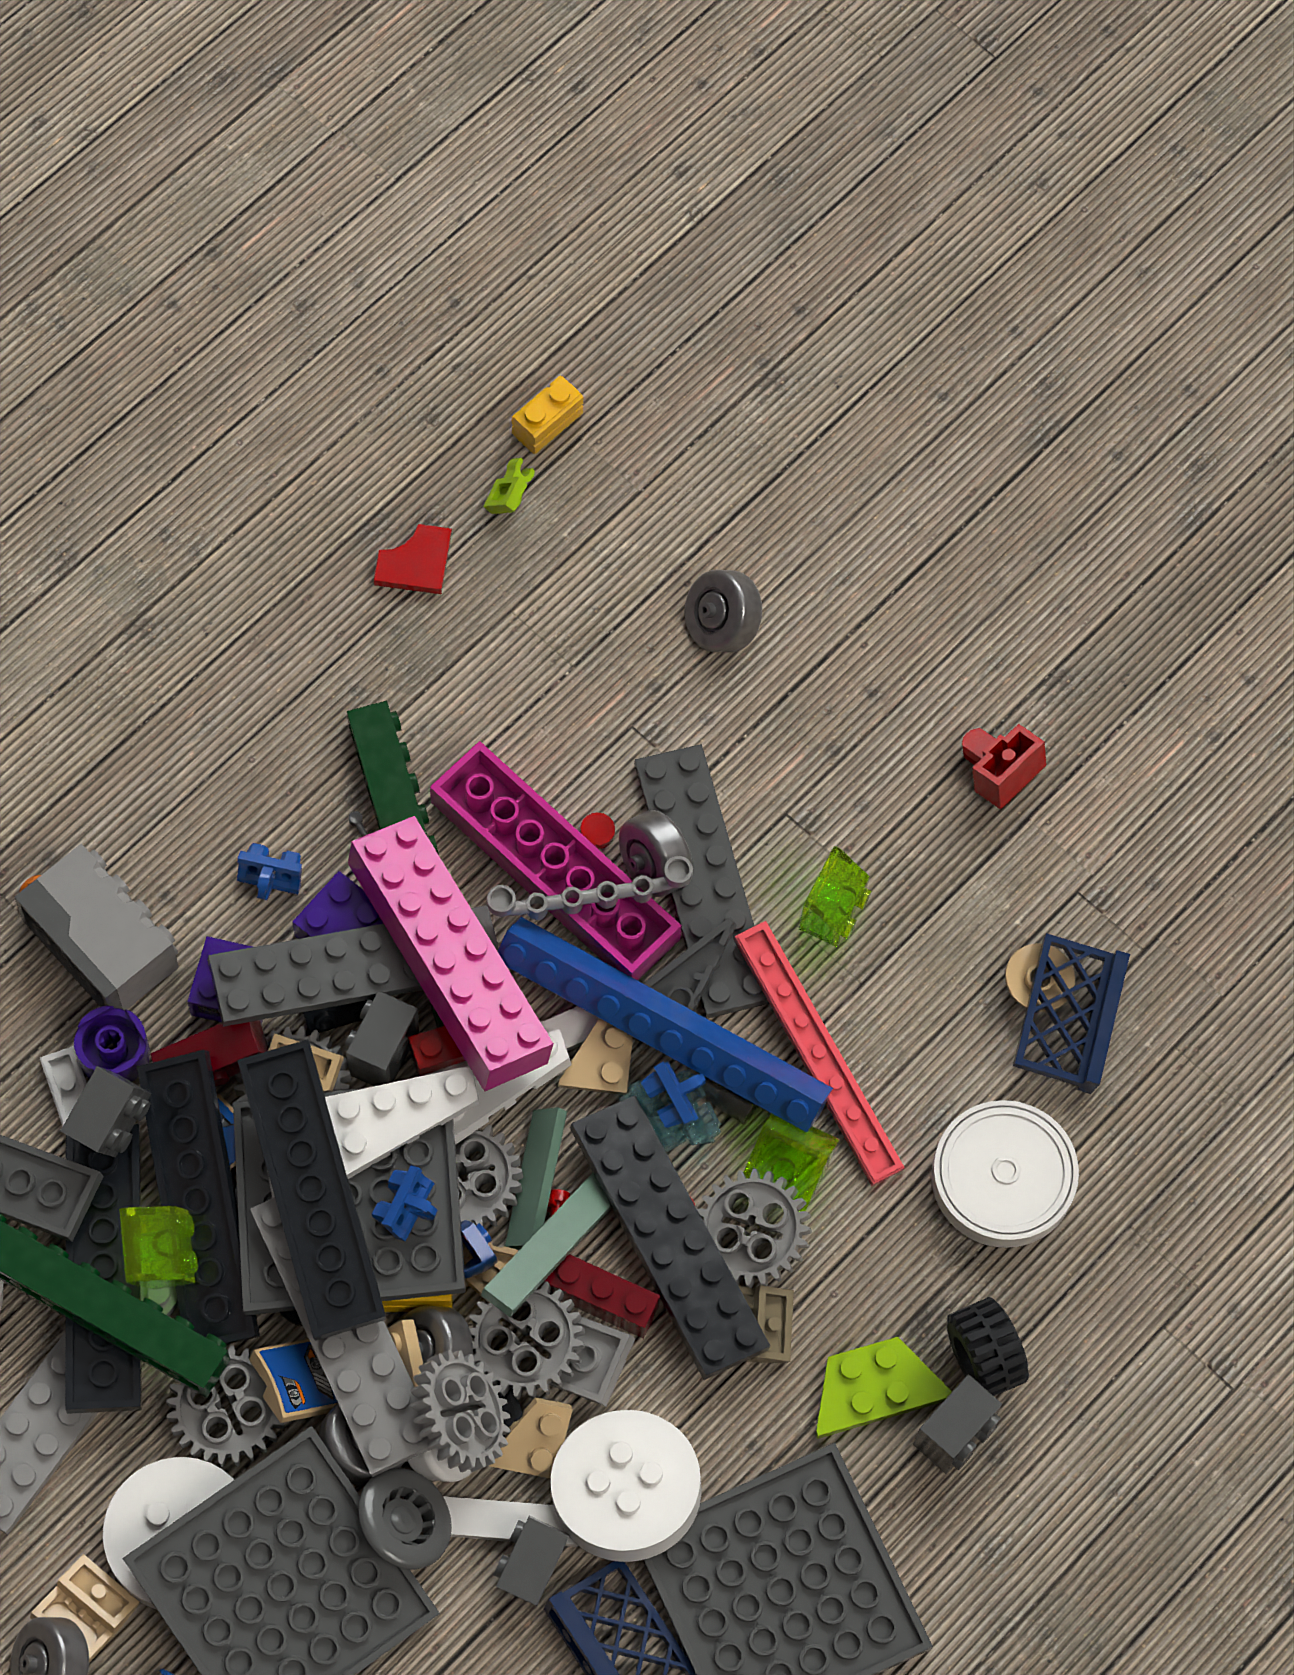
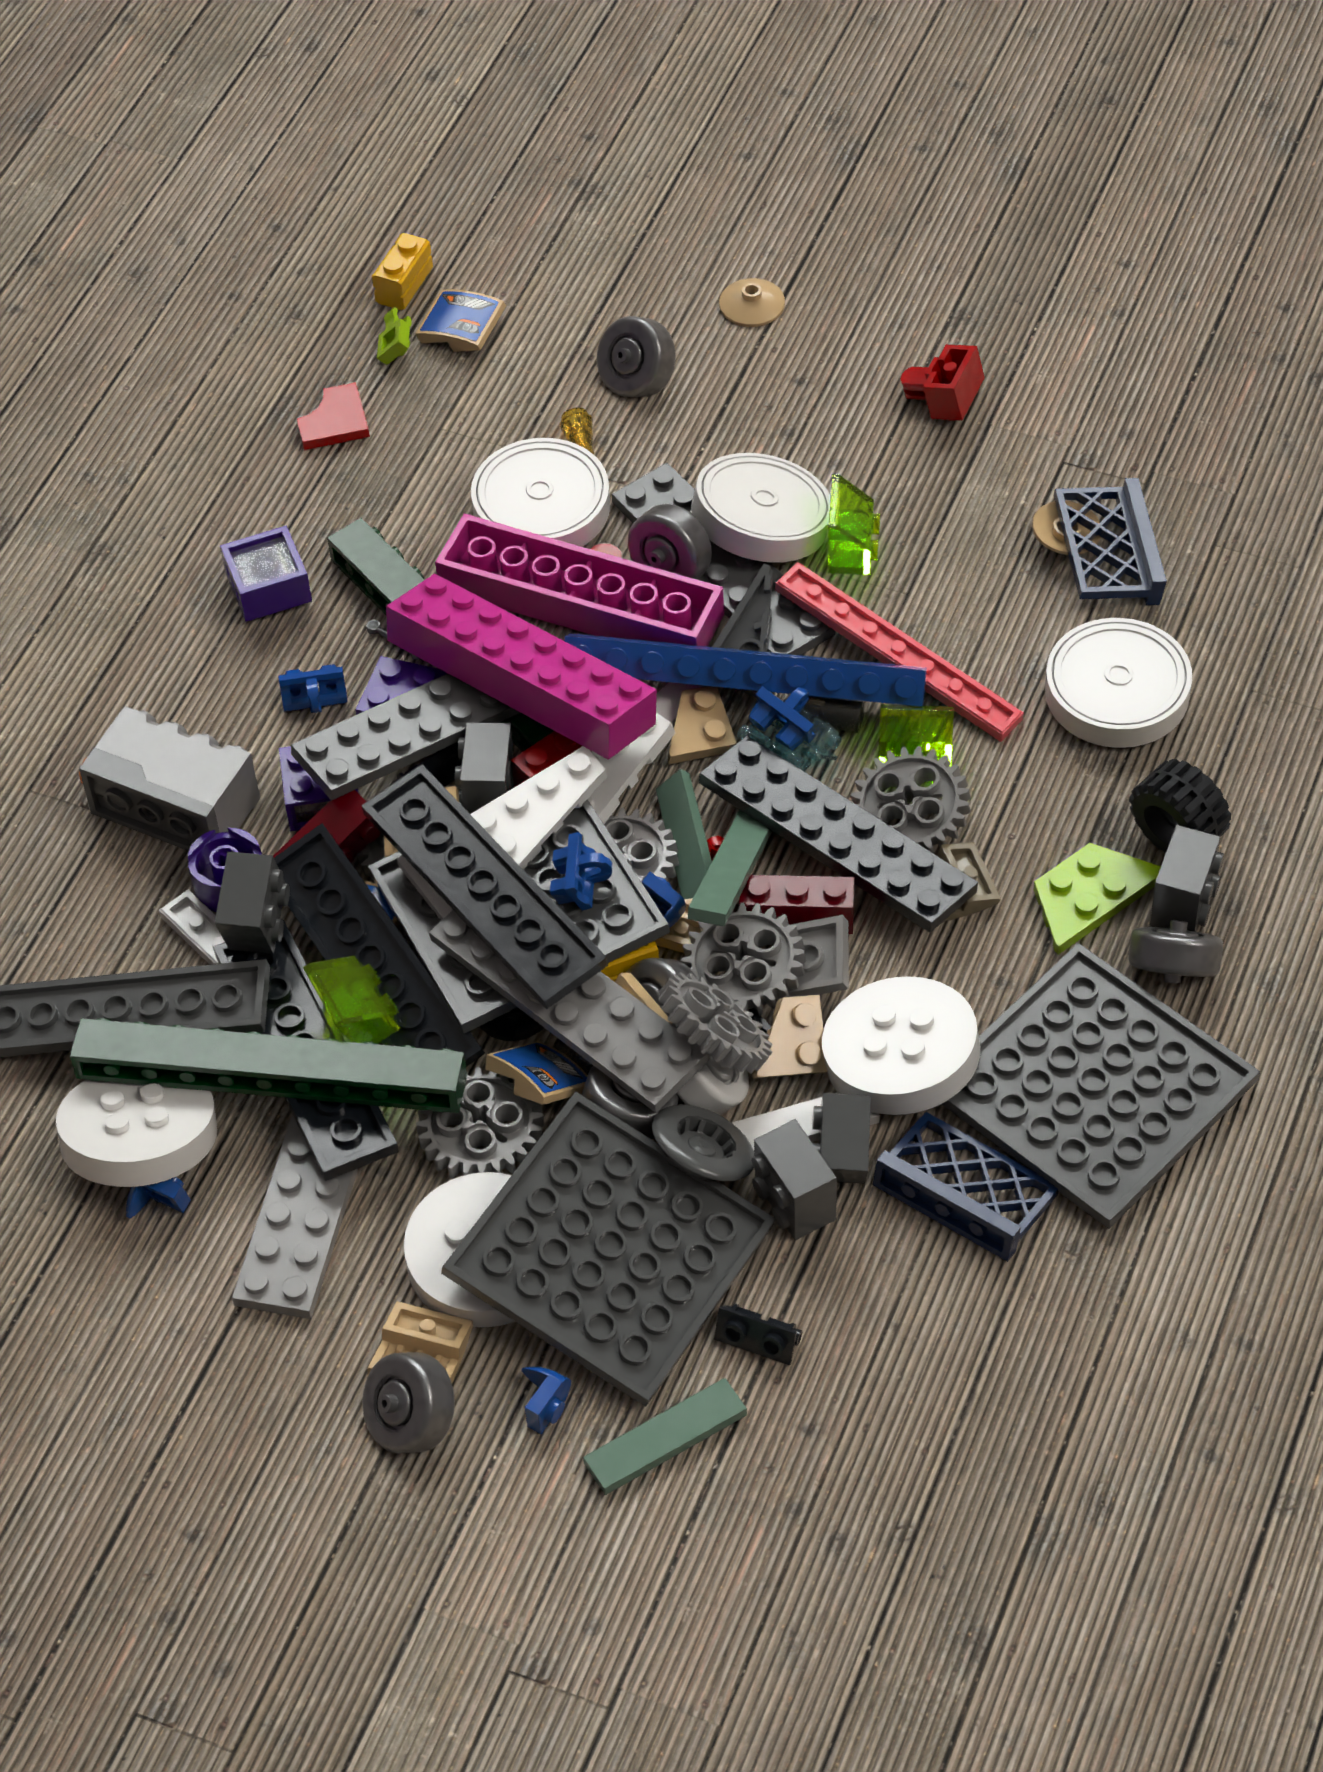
camera: 15 degrees left, 15 degrees down
(276, 726) = (266, 573): none -> dark purple piece
(469, 1585) = (794, 1180): none -> dark grey brick
(502, 899) = (550, 605): light grey bar -> none
(567, 737) = (544, 489): none -> white brick
(580, 493) = (461, 319): none -> slope
(634, 673) = (578, 427): none -> clear yellow cone
(761, 840) = (761, 507): none -> white brick
(866, 593) = (752, 302): none -> tan dish
(916, 1491) = (1175, 951): none -> flat silver wheel

